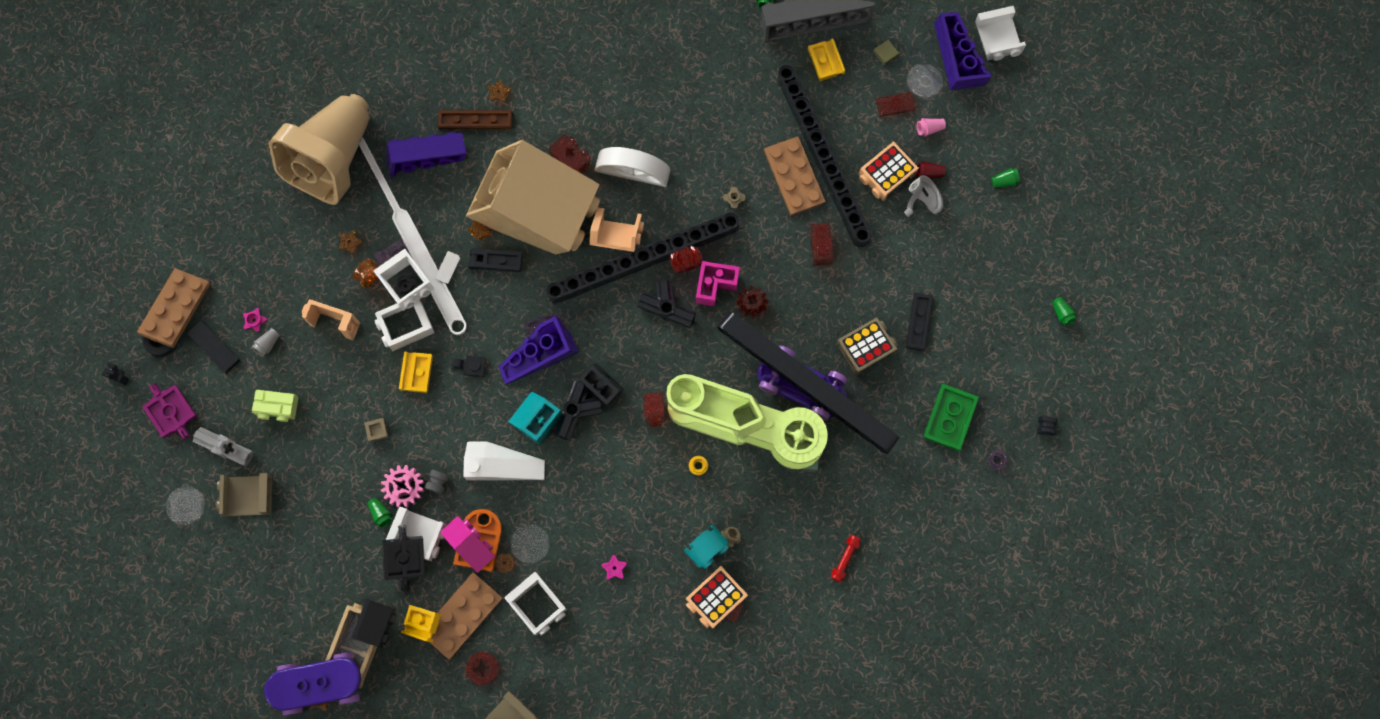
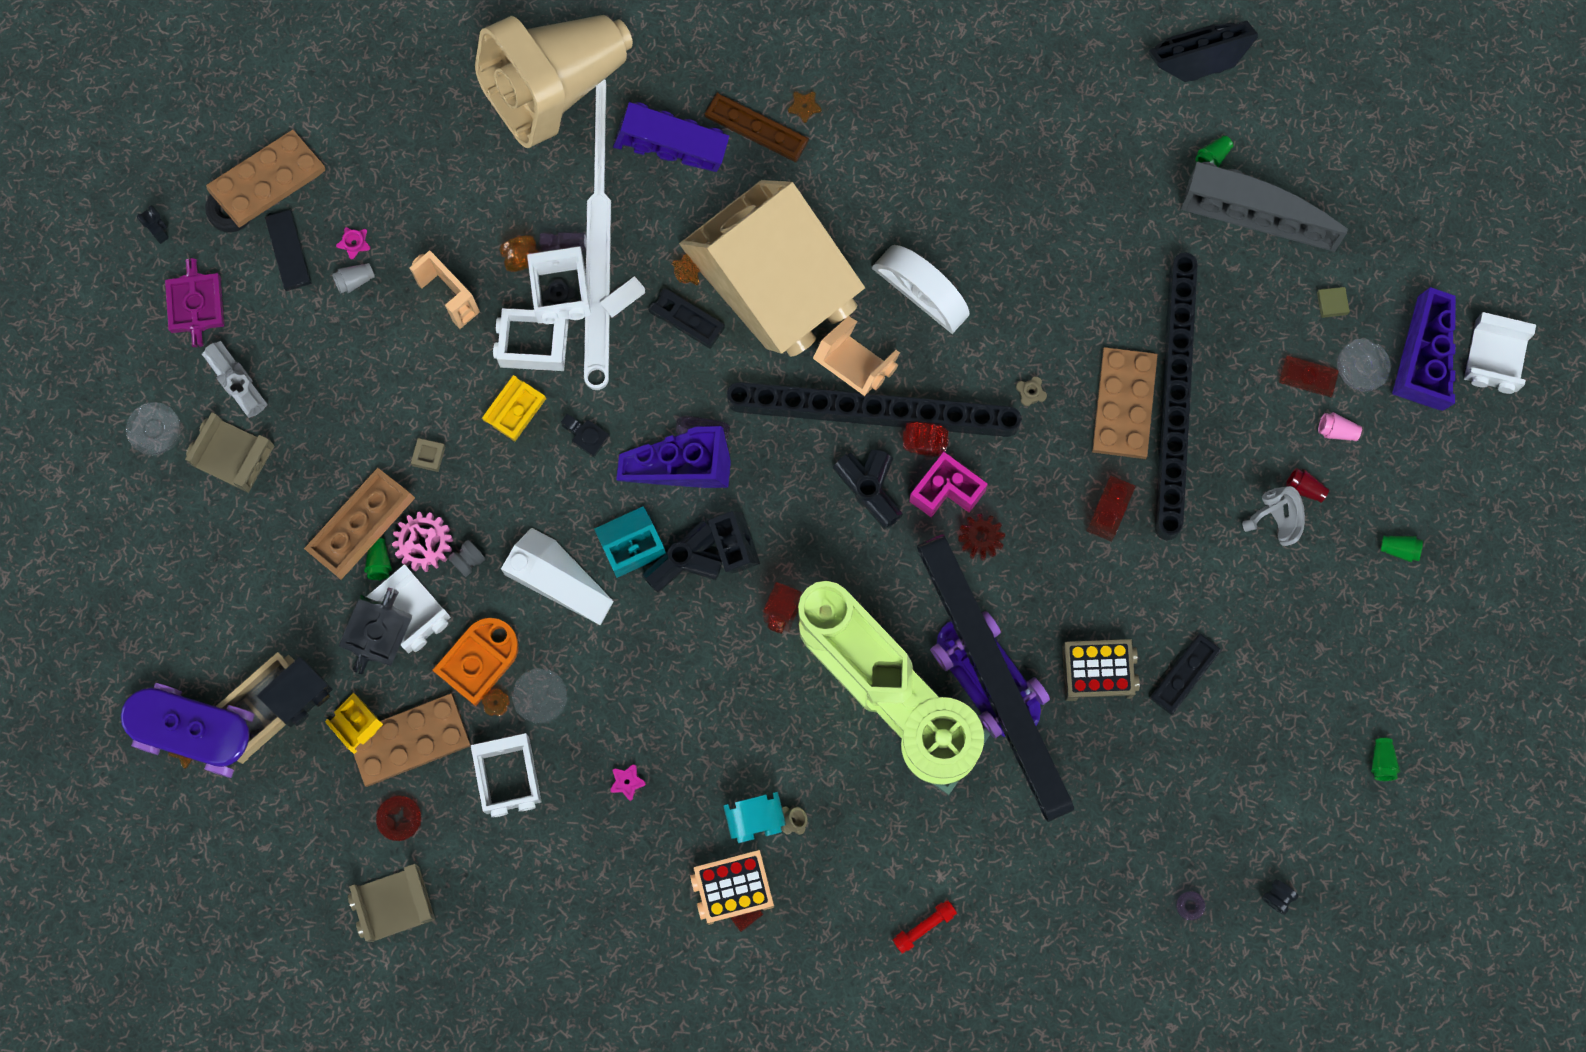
camera: 30 degrees right, 0 degrees up
(275, 404) = (322, 360): yellowish green brick -> none
(349, 246) = (519, 210): clear orange plate -> none
(355, 496) = (359, 523): none -> medium nougat plate
(466, 542) = (459, 654): dark pink brick -> none
(565, 146) = (846, 218): clear red brick -> none
(700, 459) = (801, 700): yellow plate -> none
(826, 59) = (1248, 273): yellow plate -> none
(887, 171) = (1249, 457): panel -> none
(950, 417) = (1159, 818): green plate -> none

